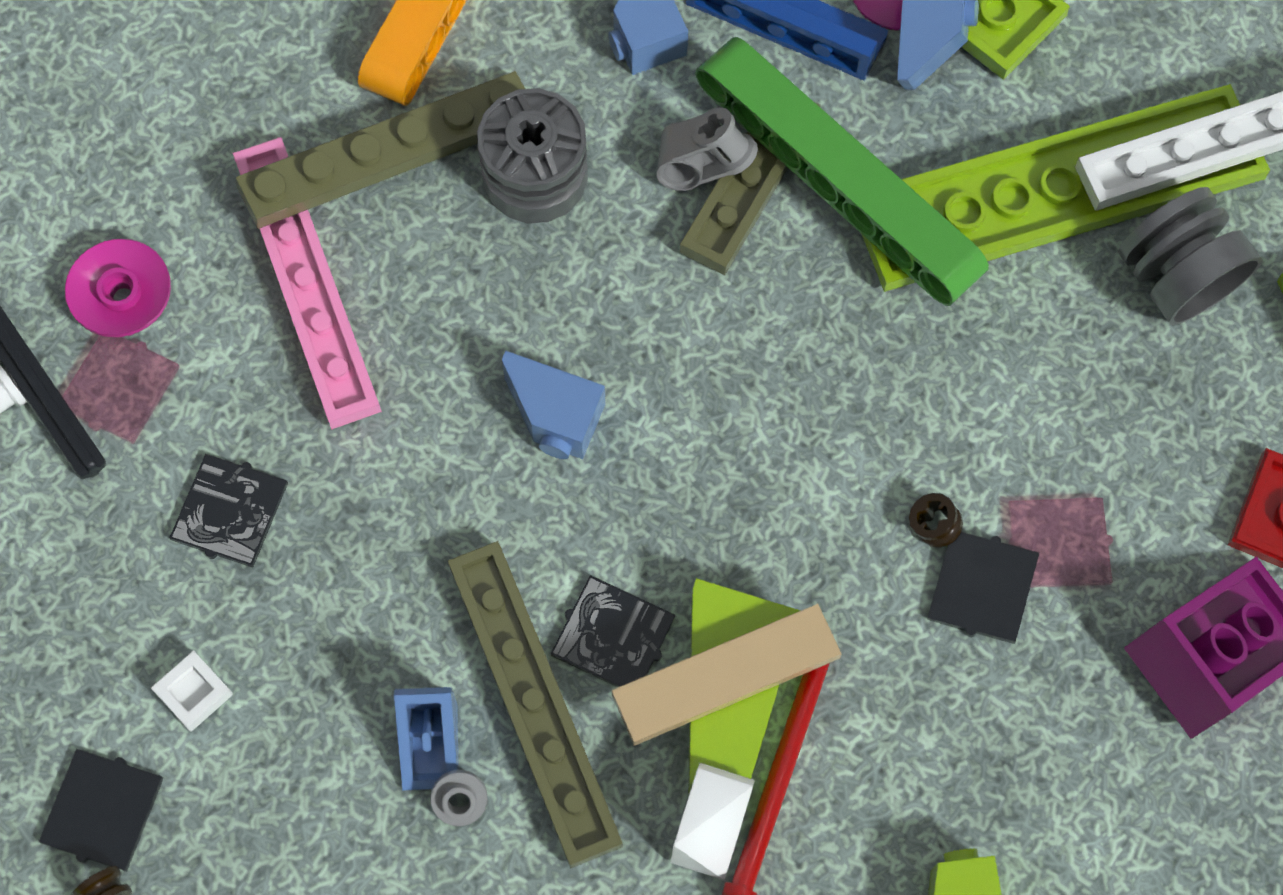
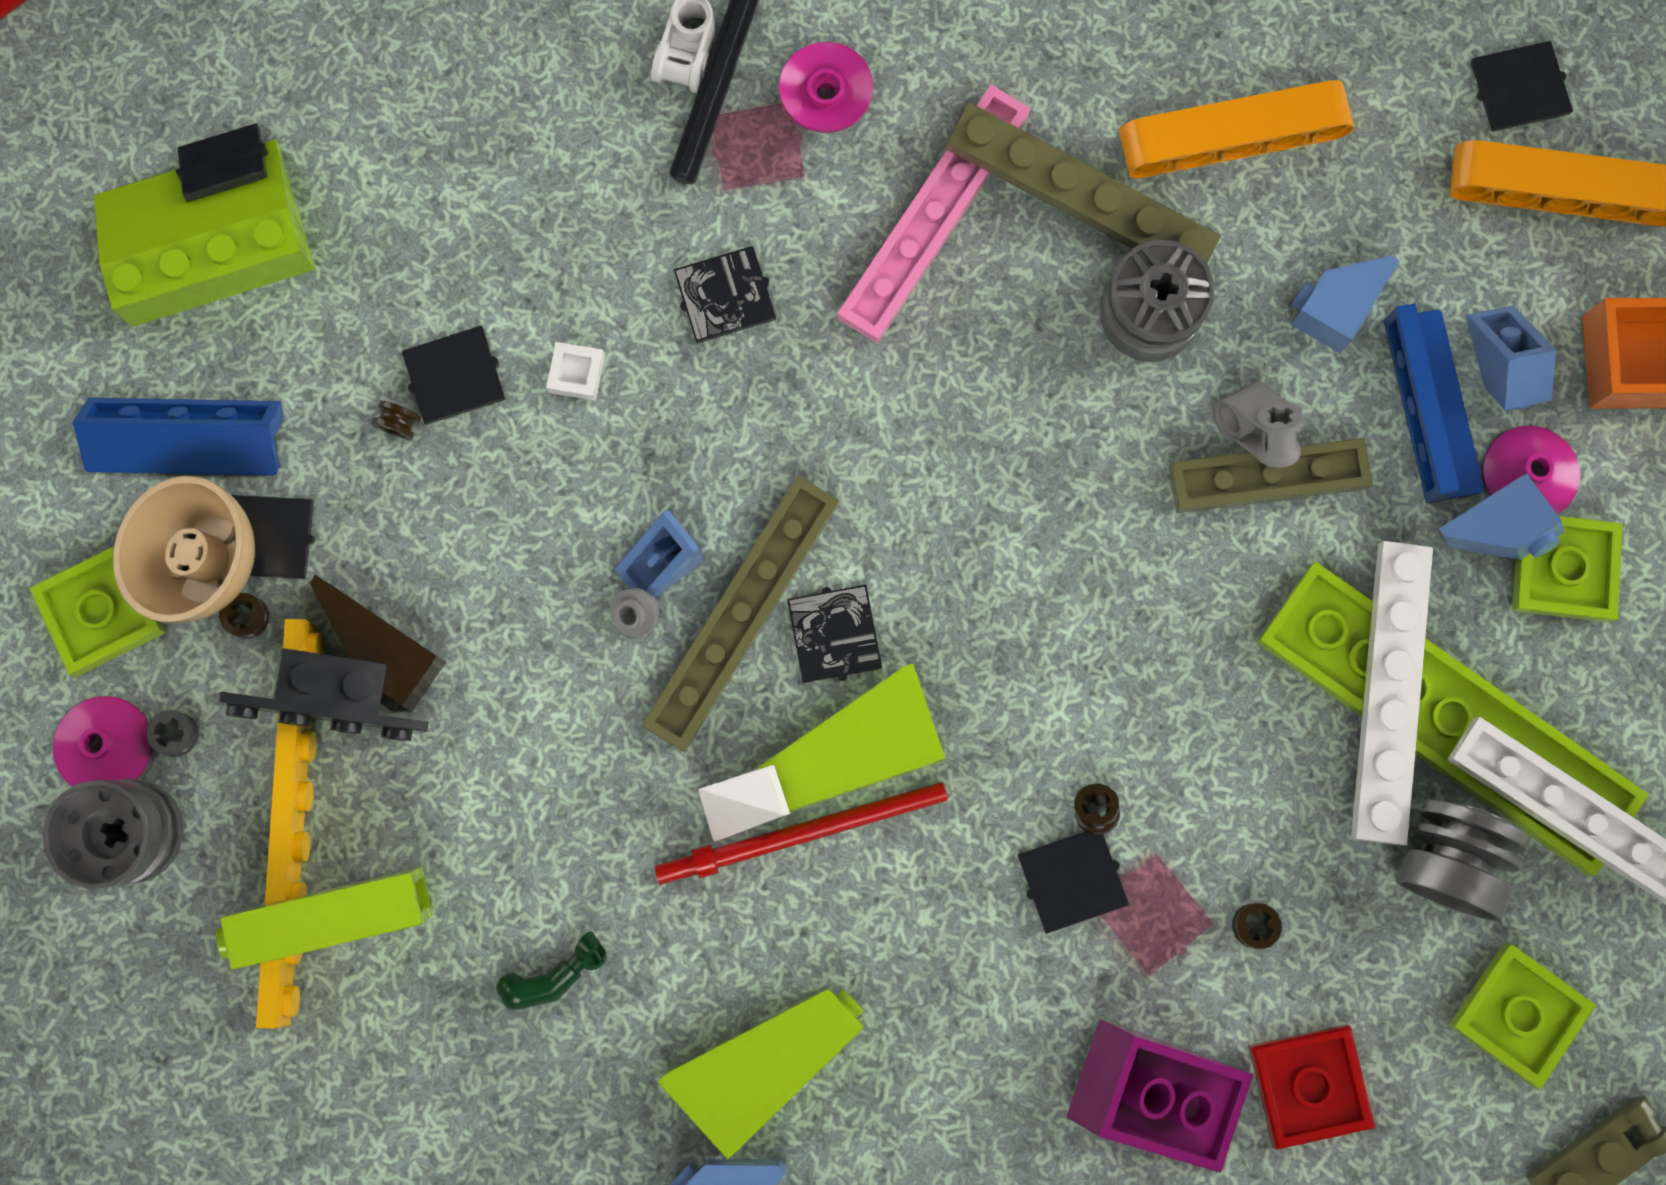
camera: 55 degrees right, 10 degrees up
(555, 405) = (972, 465): medium blue slope -> none
(726, 674) = (854, 737): tan tile -> none
(842, 171) = (1324, 540): bright green beam -> none
(1010, 213) = (1392, 693): none -> white plate
(1135, 449) = (1271, 923): none -> dark brown bush

